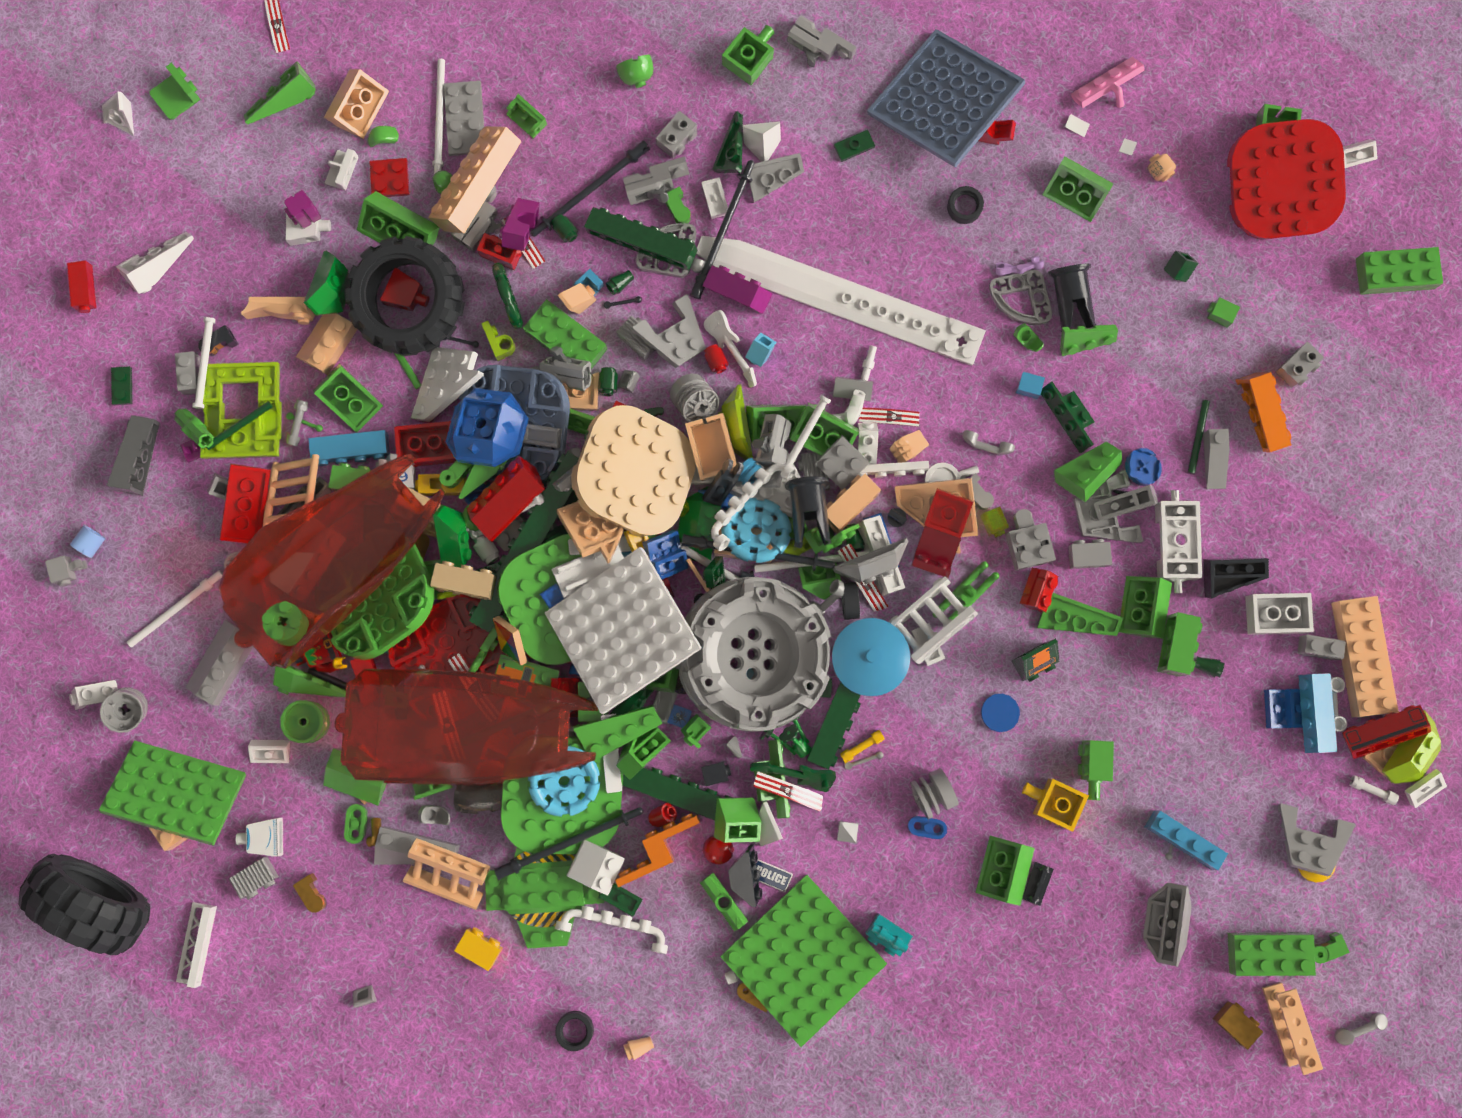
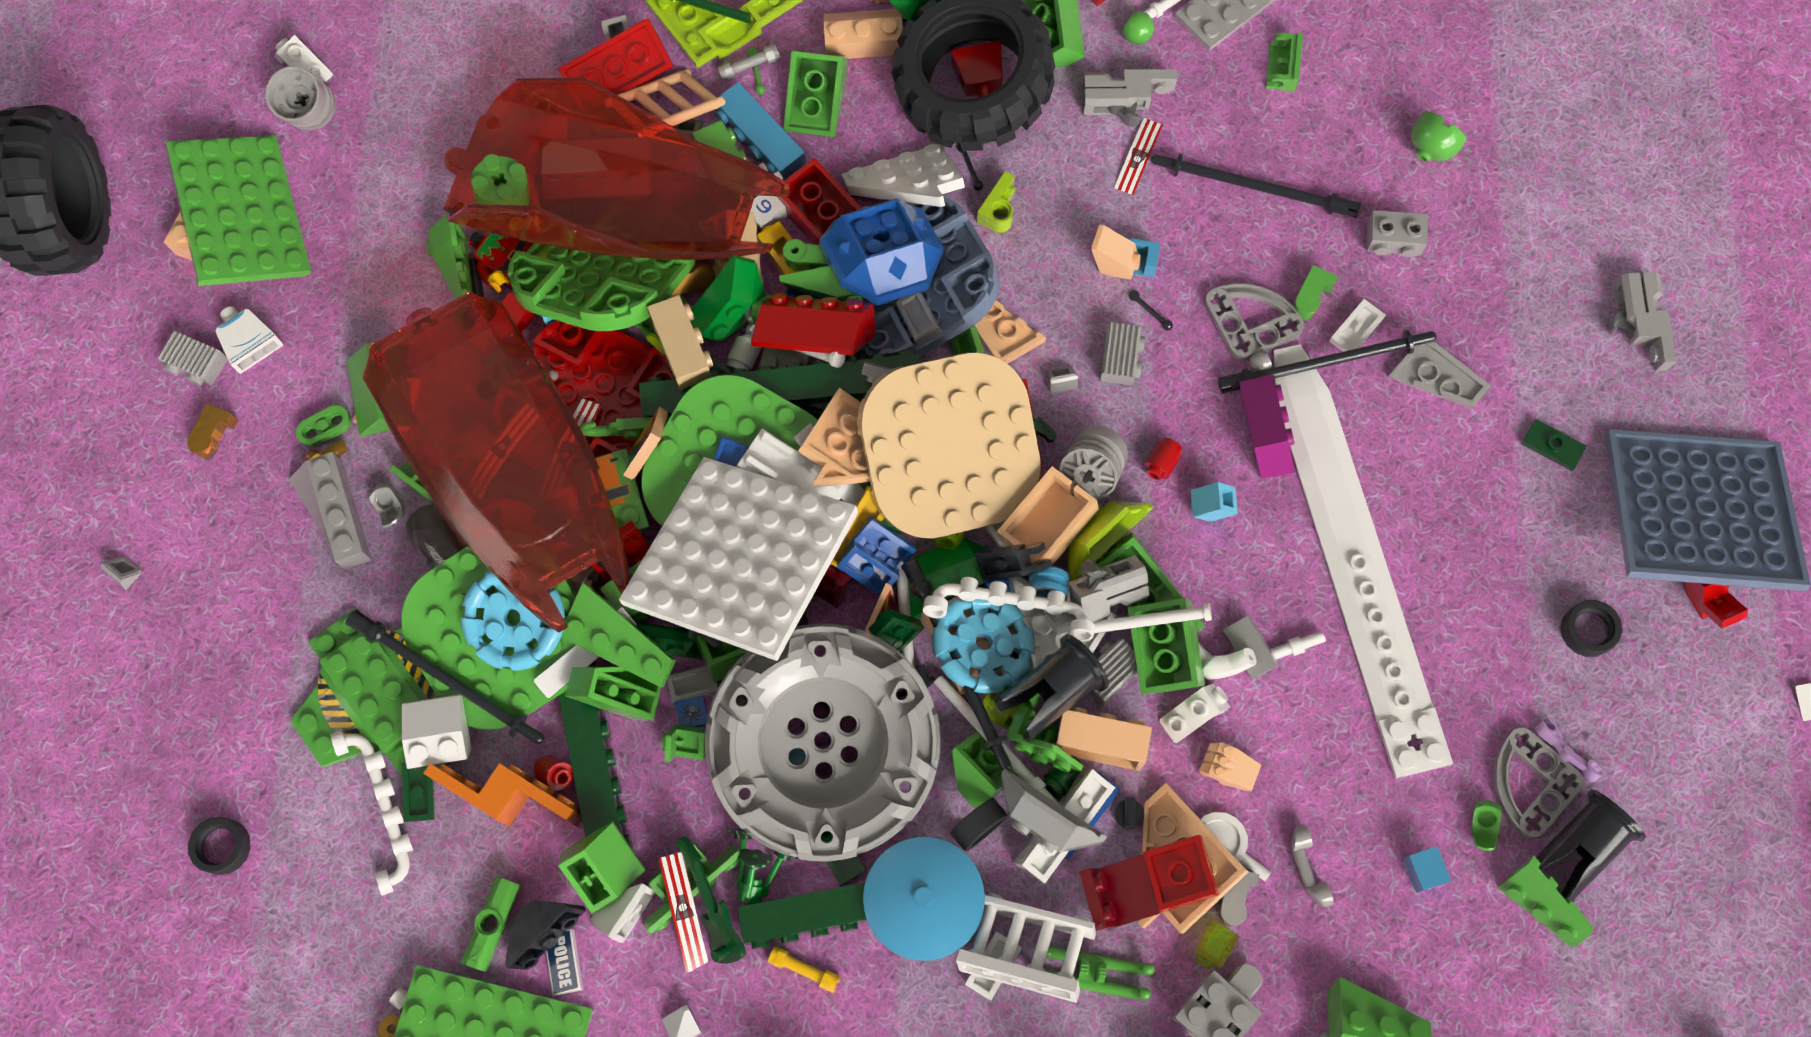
camera: 60 degrees right, 10 degrees down
(201, 944) = (81, 353): white fence -> none
(205, 585) = (441, 77): white bar -> none
(218, 666) = (409, 167): light grey slope -> none
(269, 751) = (352, 280): white slope -> none
(302, 710) = (405, 287): bright green wheel -> none
(408, 370) = (894, 137): bright green bar -> none
(451, 863) = (335, 563): light nougat fence -> none
(474, 179) = (1166, 51): light nougat brick -> none
(479, 948) = (255, 663): yellow brick -> none
(492, 250) = (1104, 135): red brick -> none
(506, 294) = (1061, 168): dark green plate -> none
(521, 218) = (1140, 131): magenta arch -> none
(555, 328) = (1057, 274): bright green brick -> none
(564, 228) = (1187, 188): dark green brick -> none
(567, 370) = (1019, 296): light grey plate -> none
(608, 381) = (1042, 355): dark green brick -> none
(619, 282) = (1171, 289): dark green cone -> none
(638, 1047) = (241, 938): light nougat cone -> none
(640, 238) = (1241, 276): dark green brick -> none
(656, 183) = (1322, 249): light grey plate -> none
(679, 341) = (1150, 401): light grey wing -> none
(716, 773) = (648, 804): black brick -> none
(717, 851) = (548, 875): red hair -> none
(718, 327) = (1203, 435): white piece -> none
(730, 154) = (1424, 308): dark green wing -> none
(734, 746) = (696, 805): light grey slope -> none
(749, 54) = (1561, 247): bright green brick -> none
(762, 138) = (1473, 332): white slope -> none
(836, 590) = (977, 795): light grey bar -> none
(842, 462) = (1146, 692): light grey plate -> none
(869, 590) = (1010, 839): sticker -> none
(879, 755) = (768, 969): light grey hinge -> none
(890, 416) = (1251, 718): sticker -> none
(897, 469) = (1191, 772): white plate -> none
(1070, 414) = (1430, 950): dark green bracket -> none
(1077, 189) = (1729, 757): bright green slope -> none
(1180, 266) = (1742, 966): dark green panel -> none

